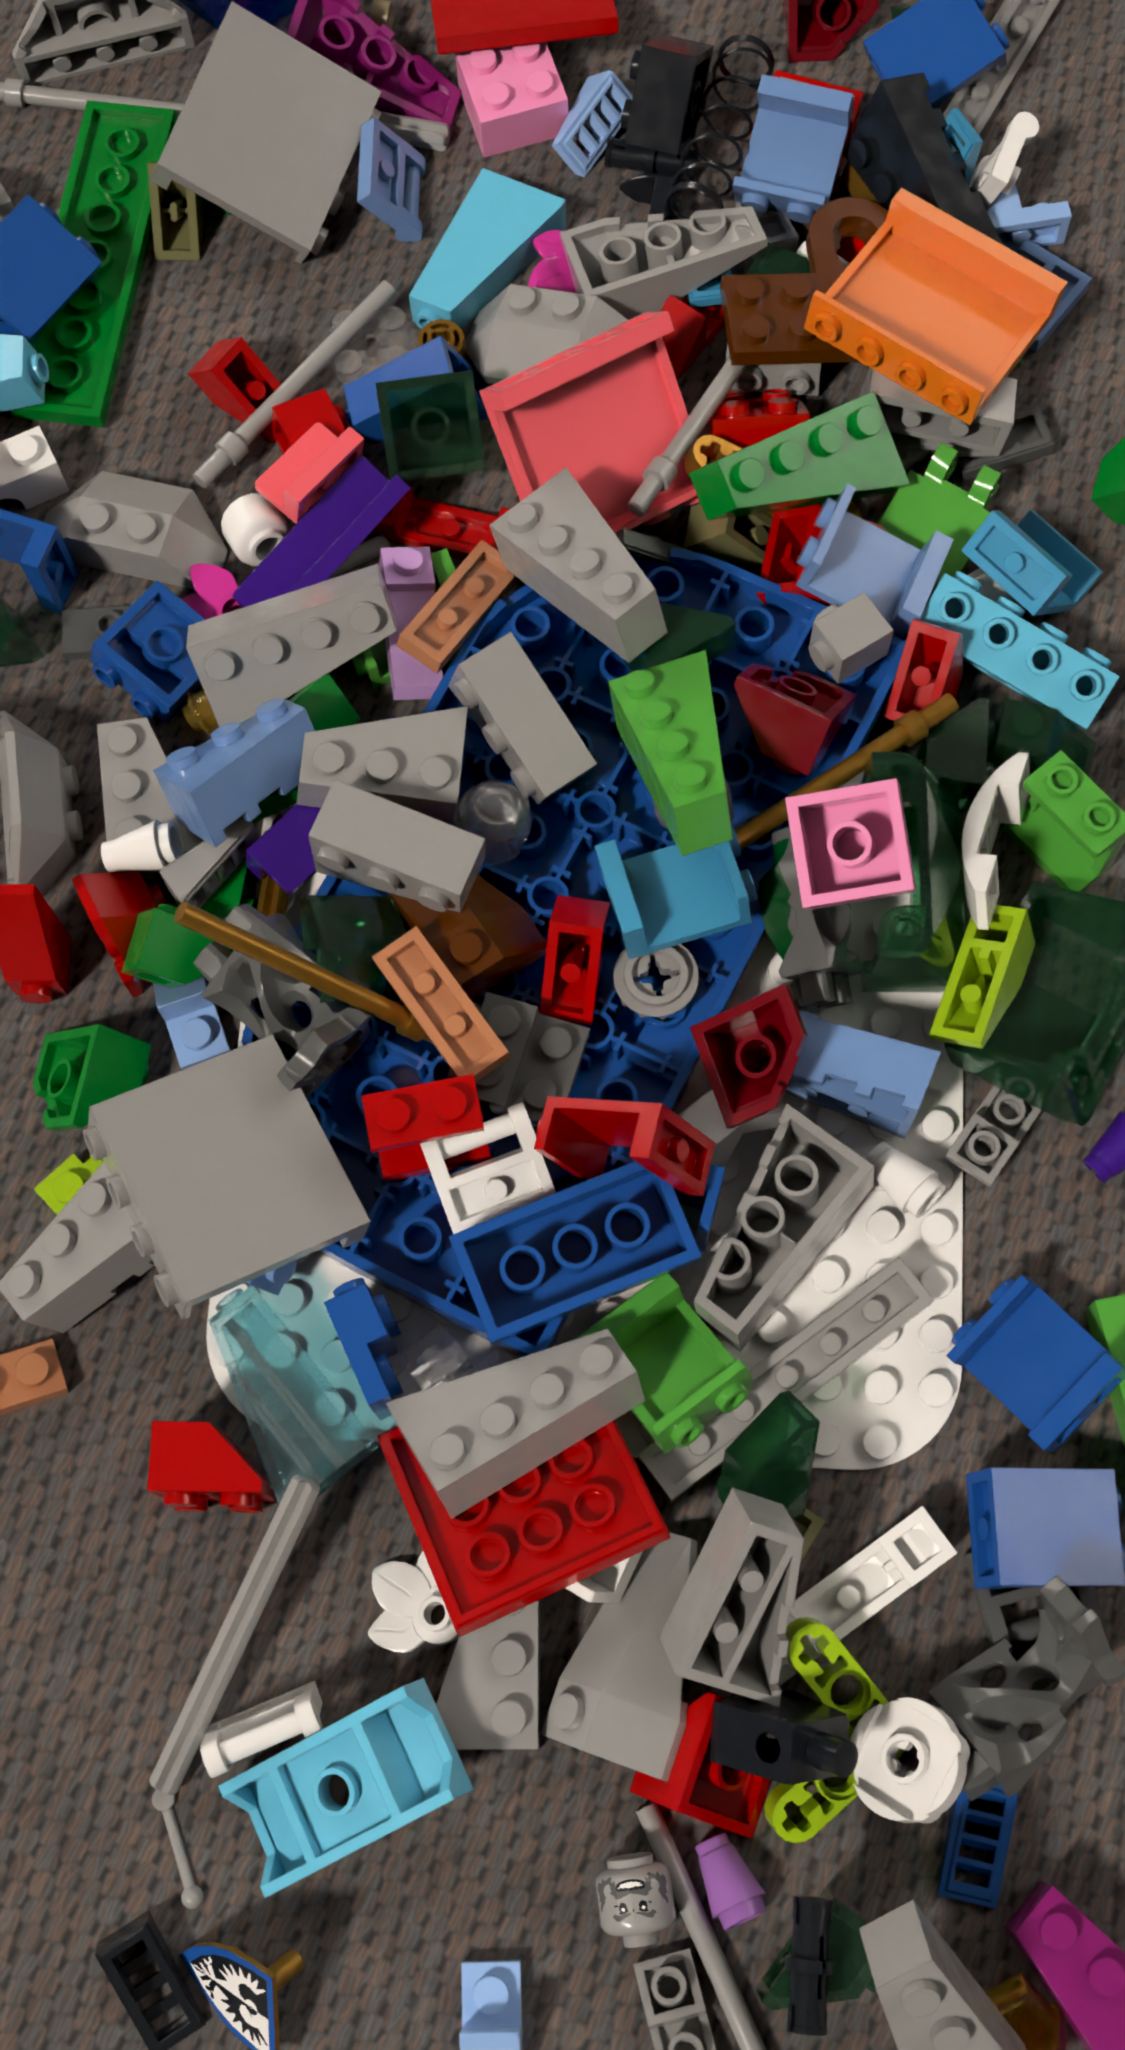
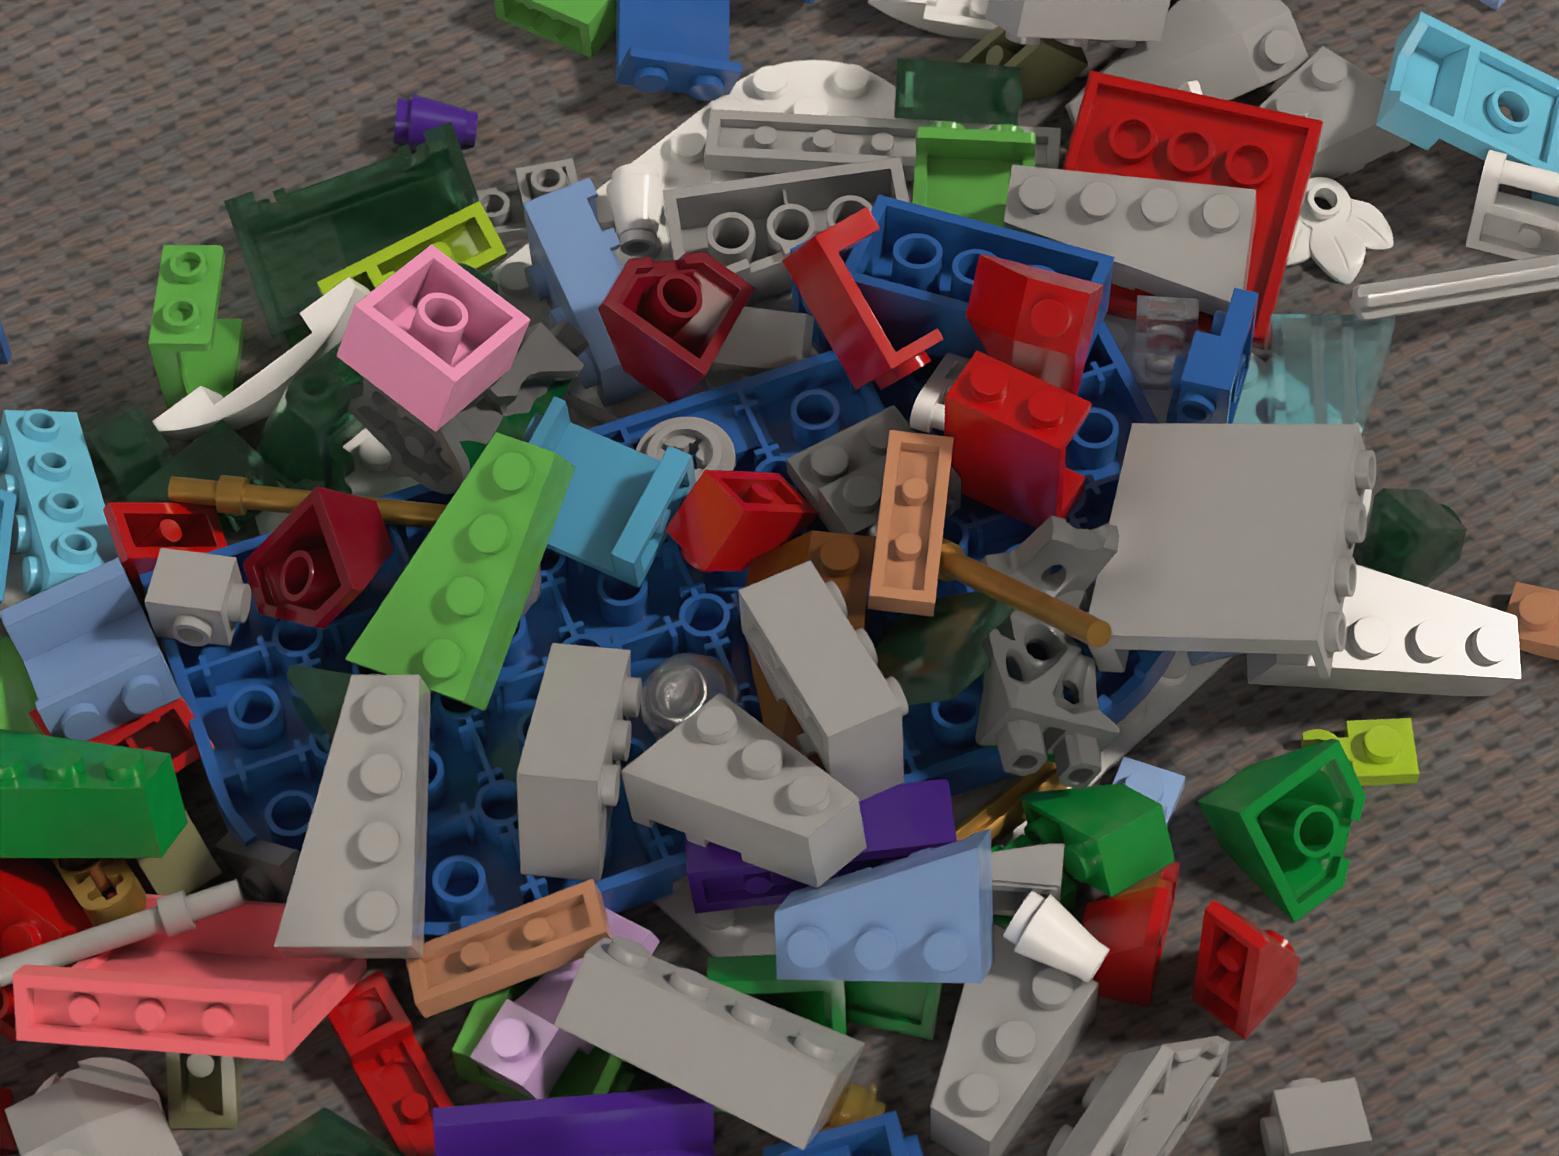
camera: 140 degrees left, 15 degrees down
(149, 1354) = (1412, 536): none -> clear green slope
(203, 1465) = (1438, 406): red slope -> none
(481, 1210) = (1034, 319): none -> red slope

